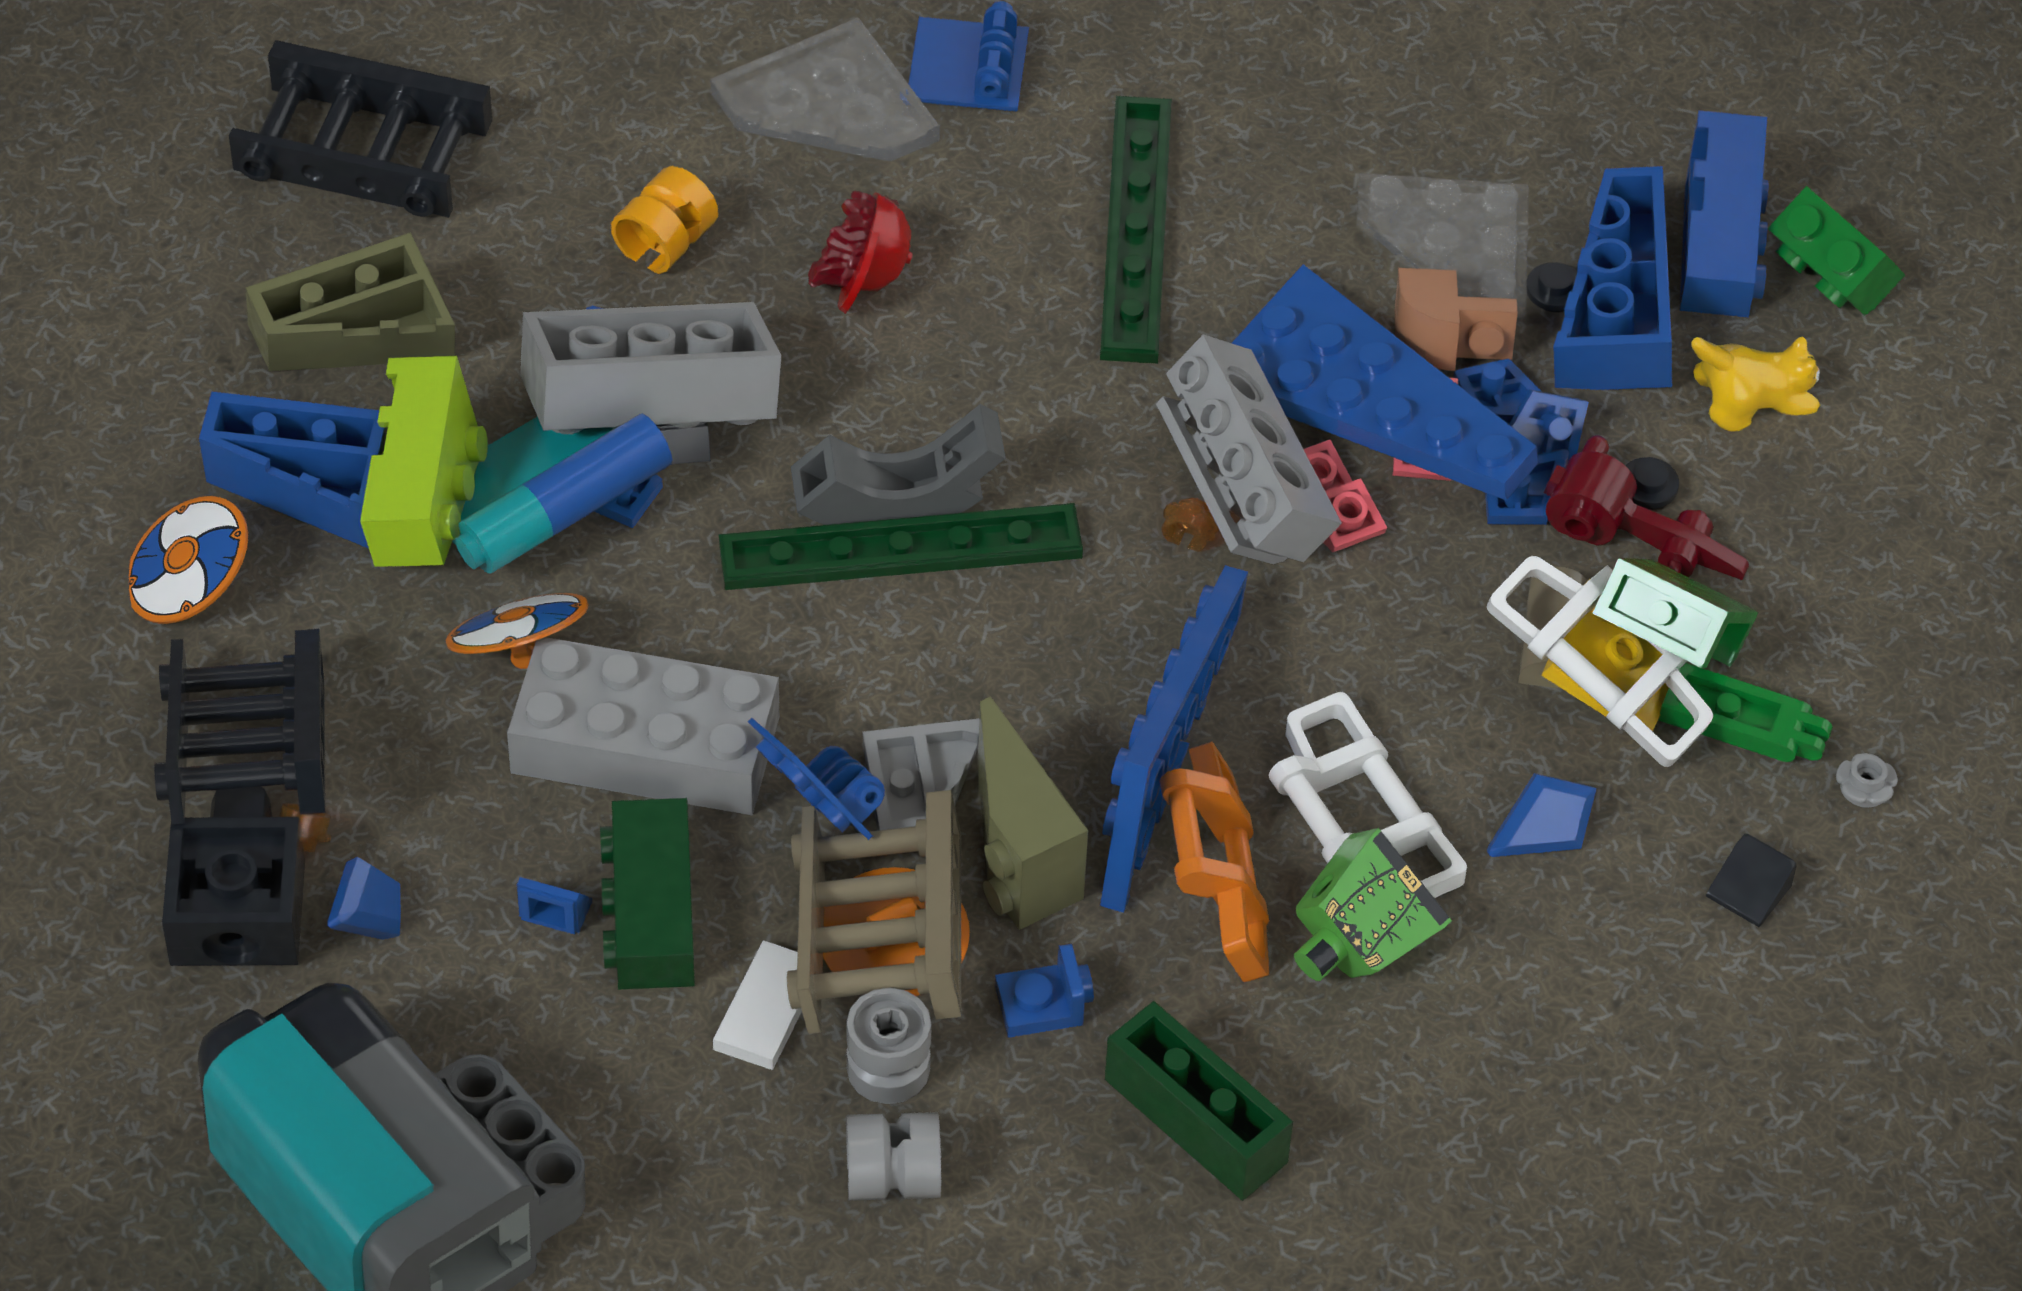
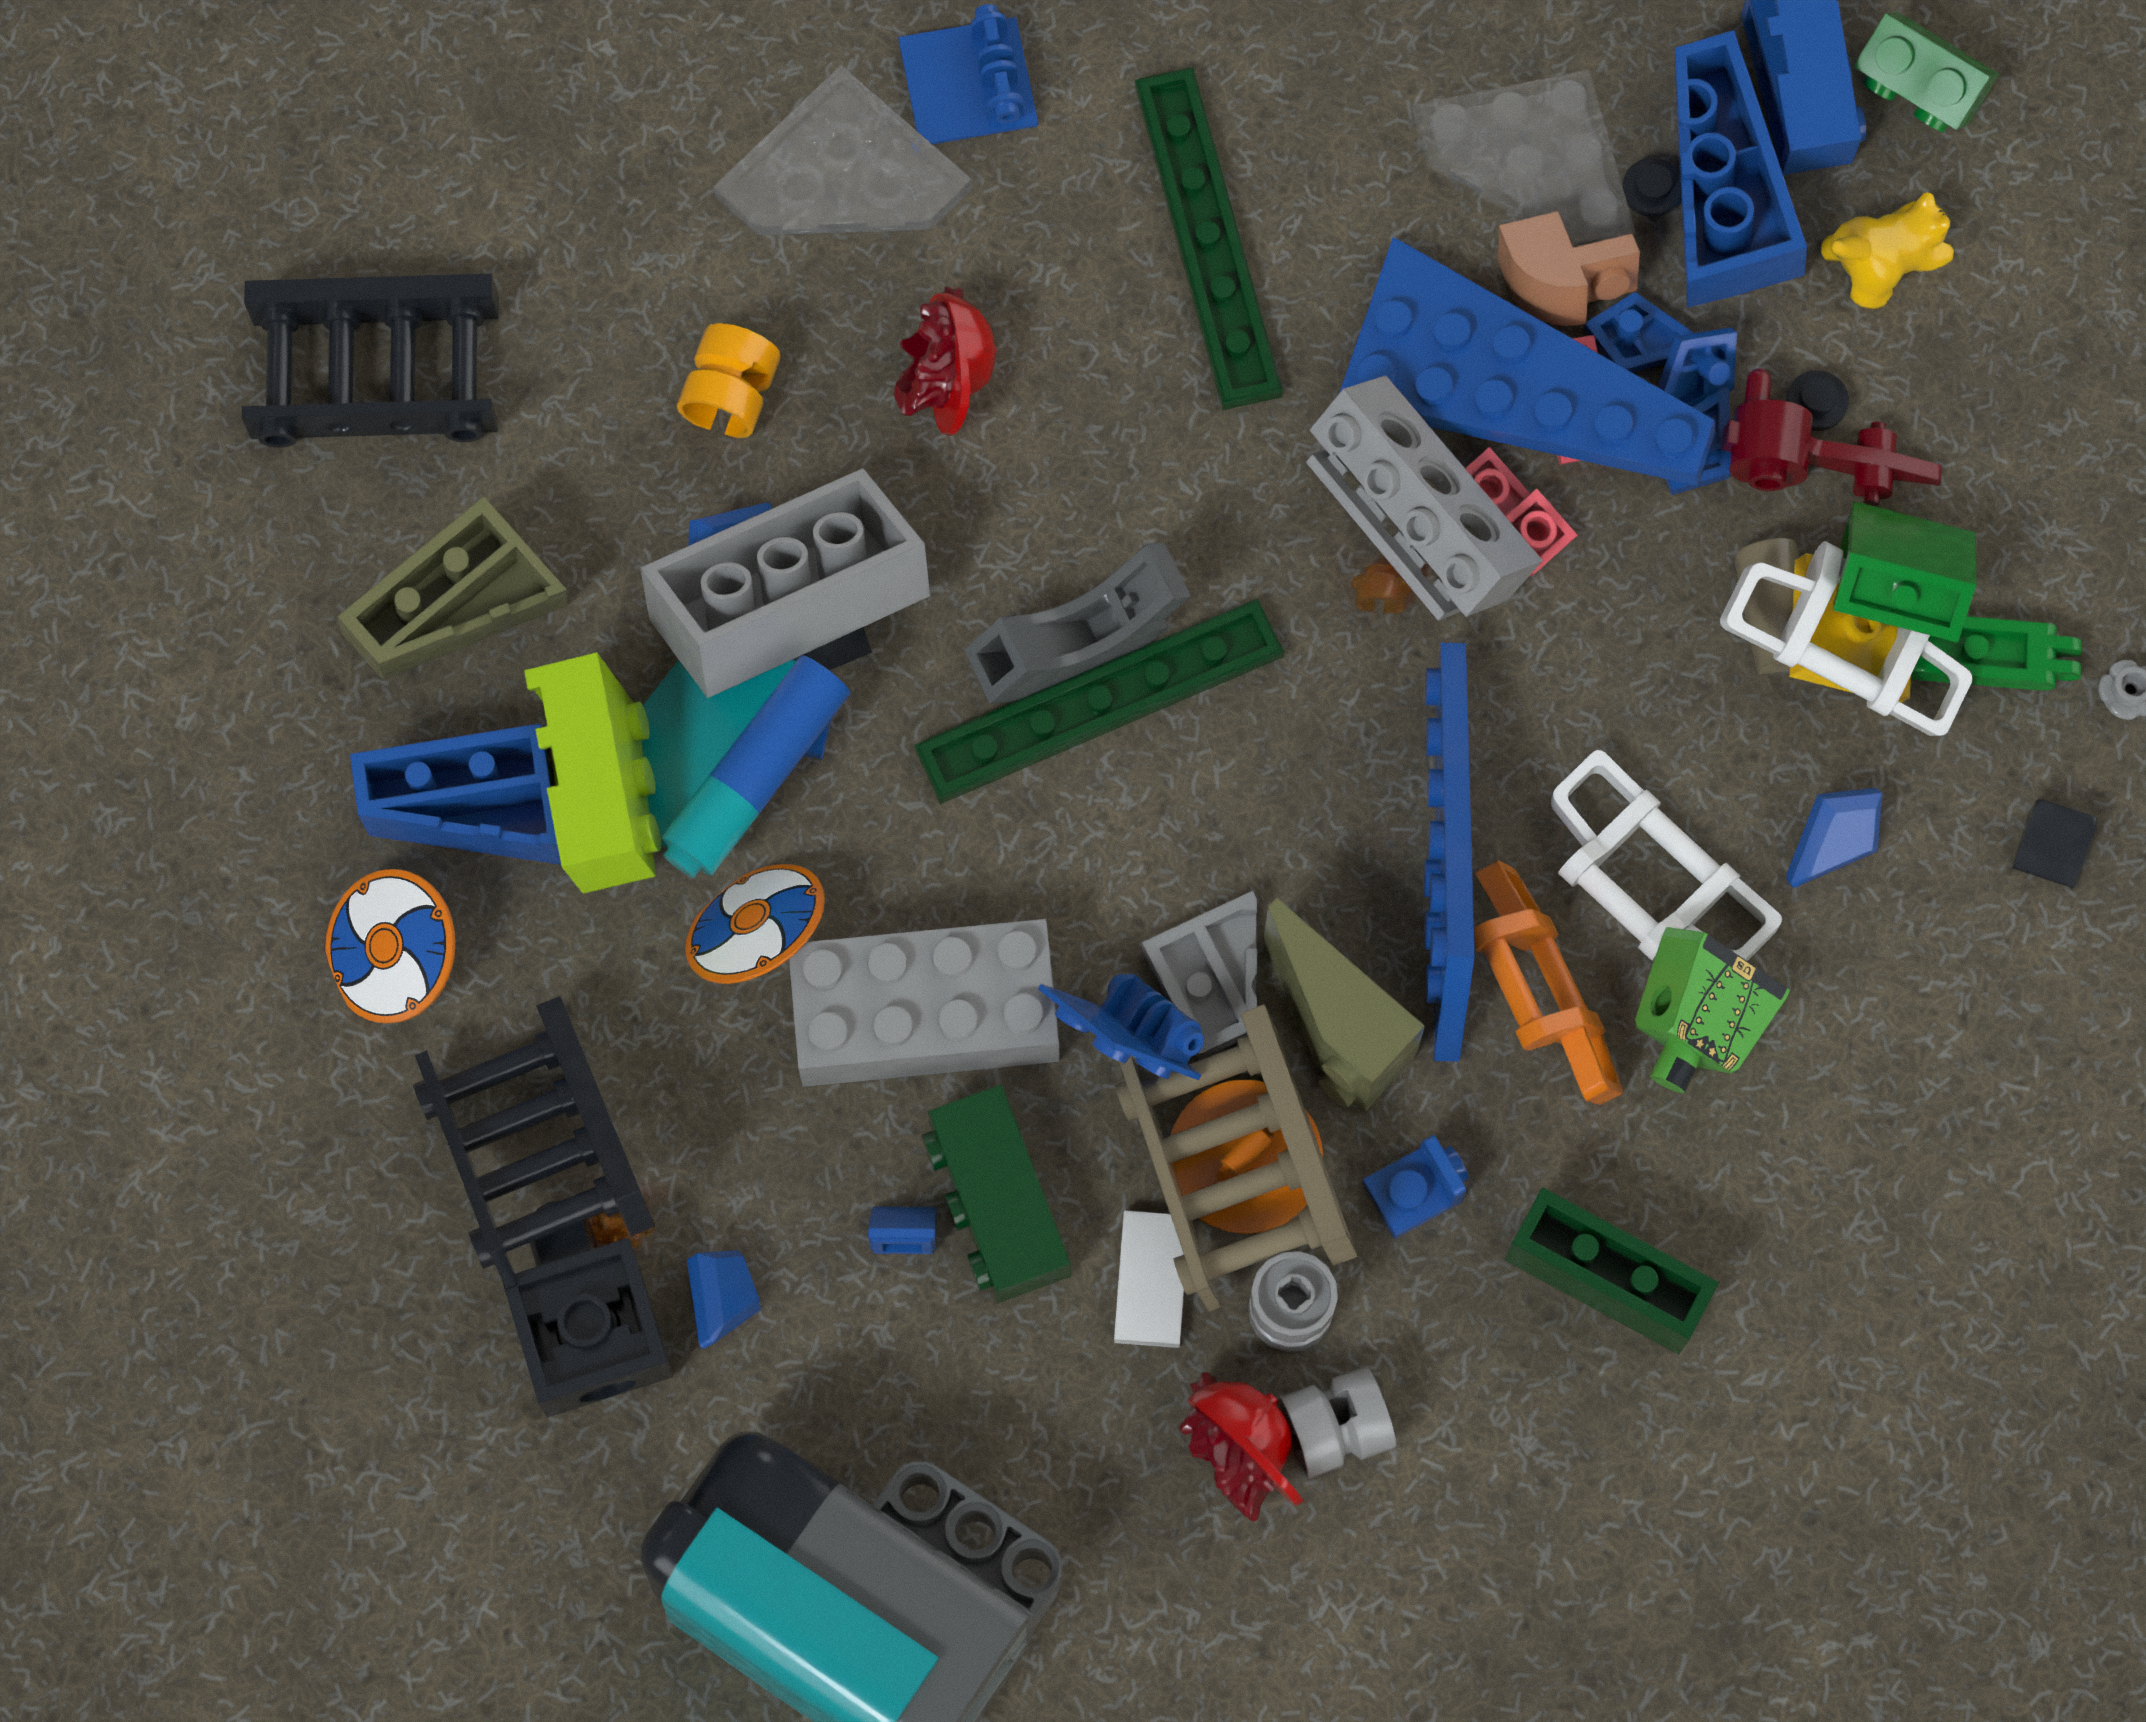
camera: 15 degrees left, 20 degrees up
(796, 1142) = (1242, 1439): none -> hair

